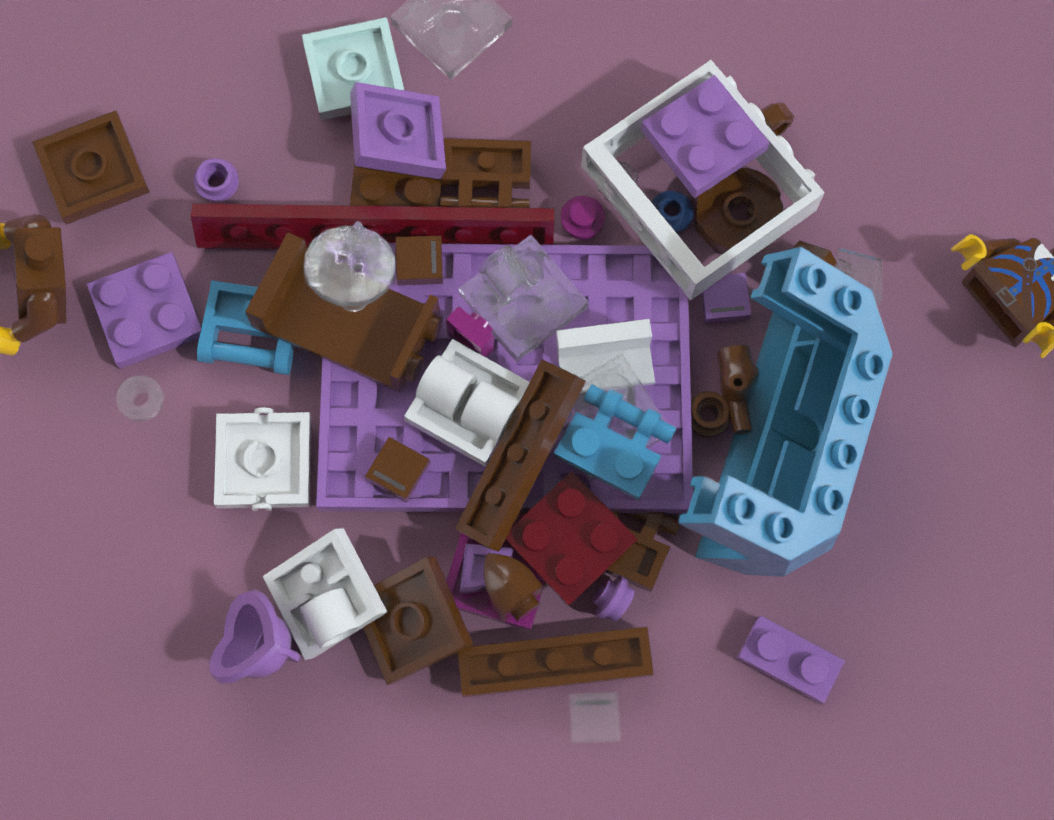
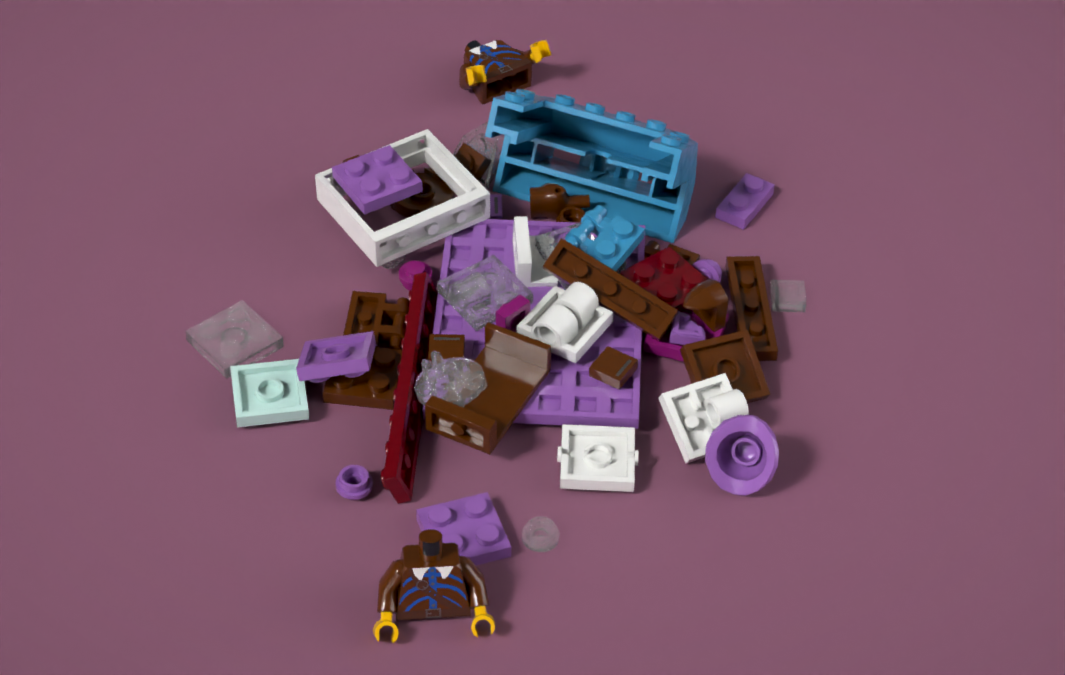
camera: 85 degrees left, 30 degrees down
(90, 167) = (332, 562): reddish brown plate -> none
(227, 313) = (472, 469): dark azure plate -> none

